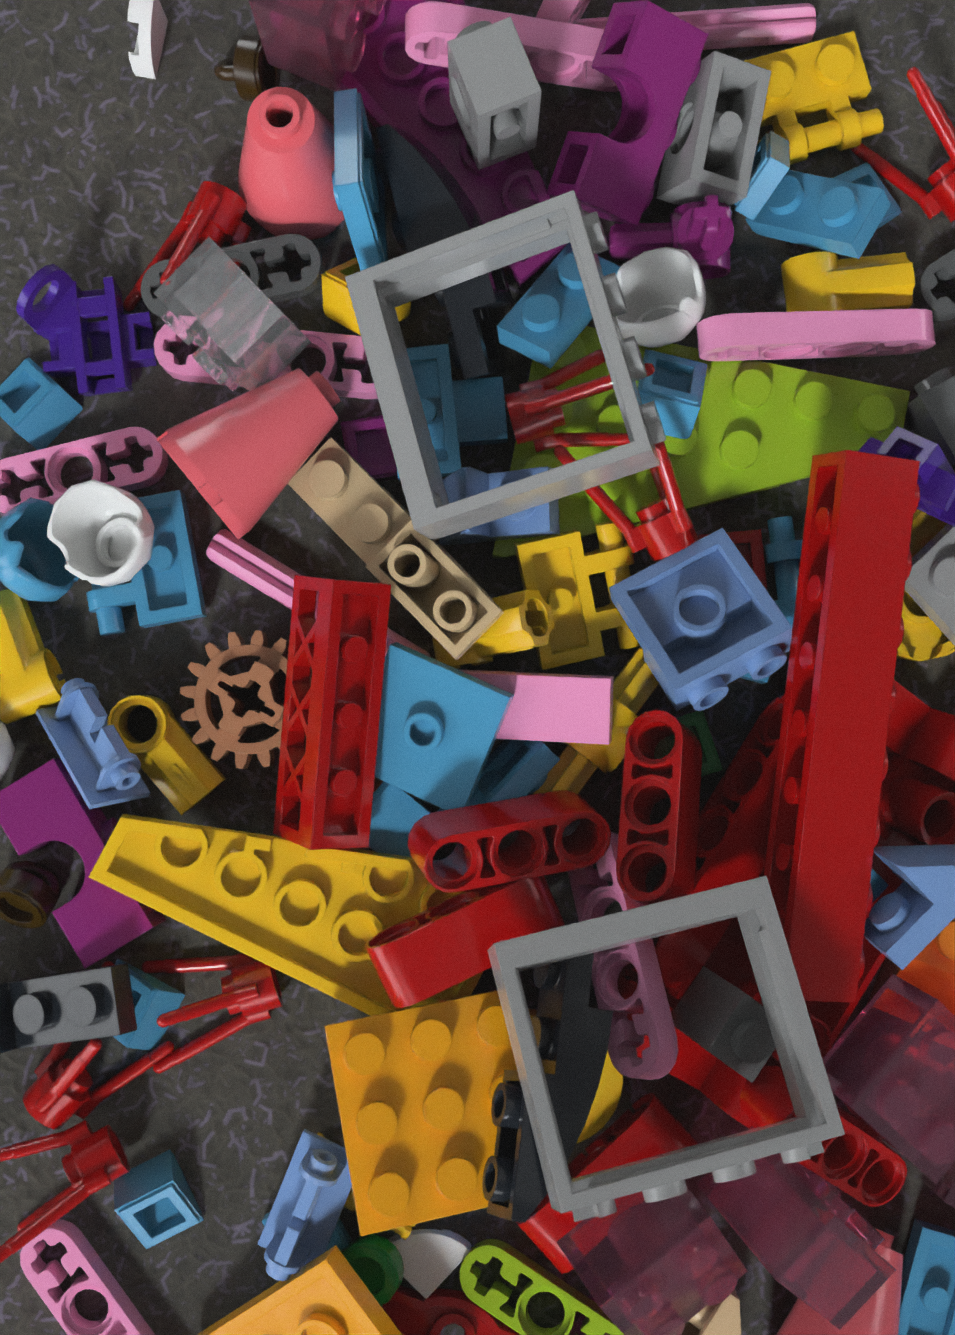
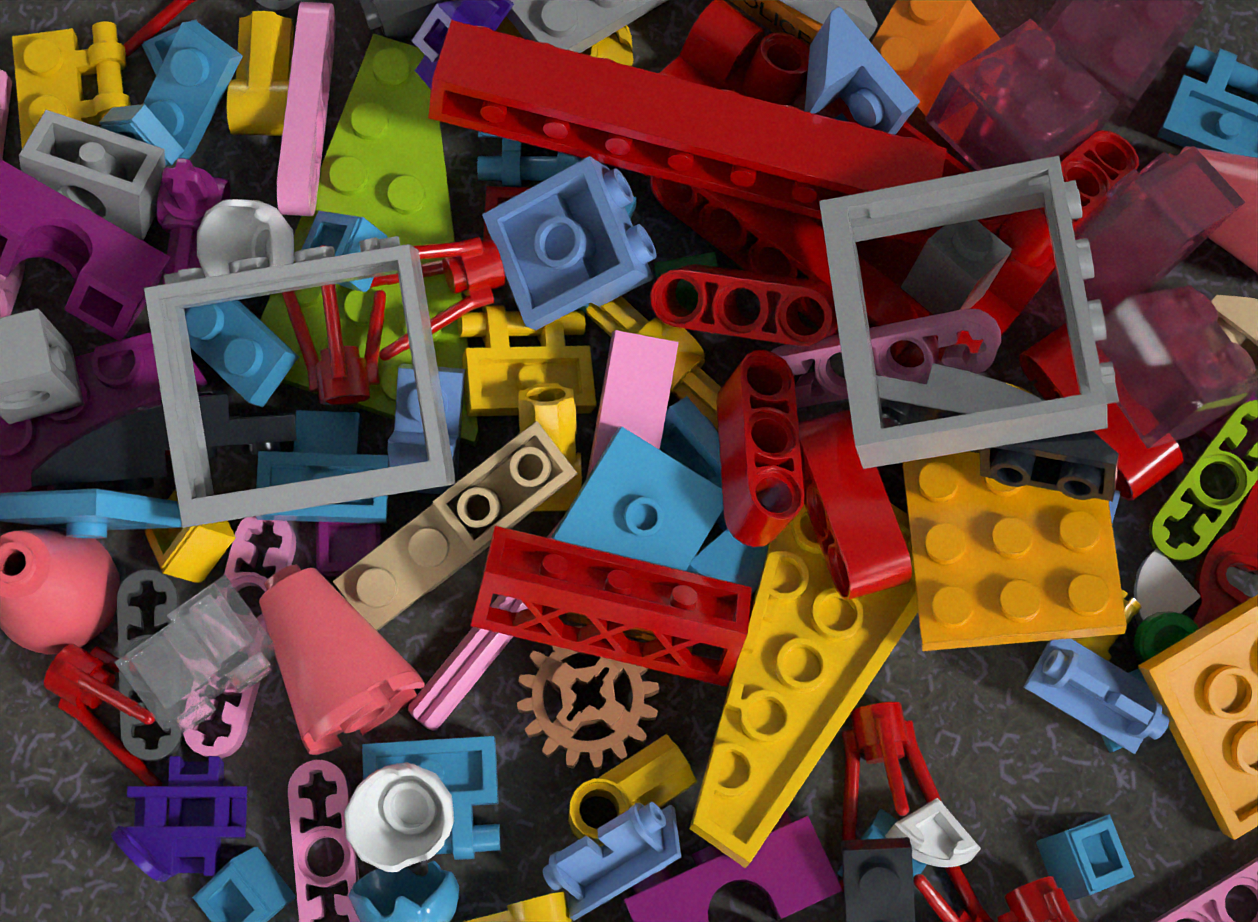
camera: 85 degrees left, 10 degrees down
(154, 1052) = (936, 836): none -> white tile

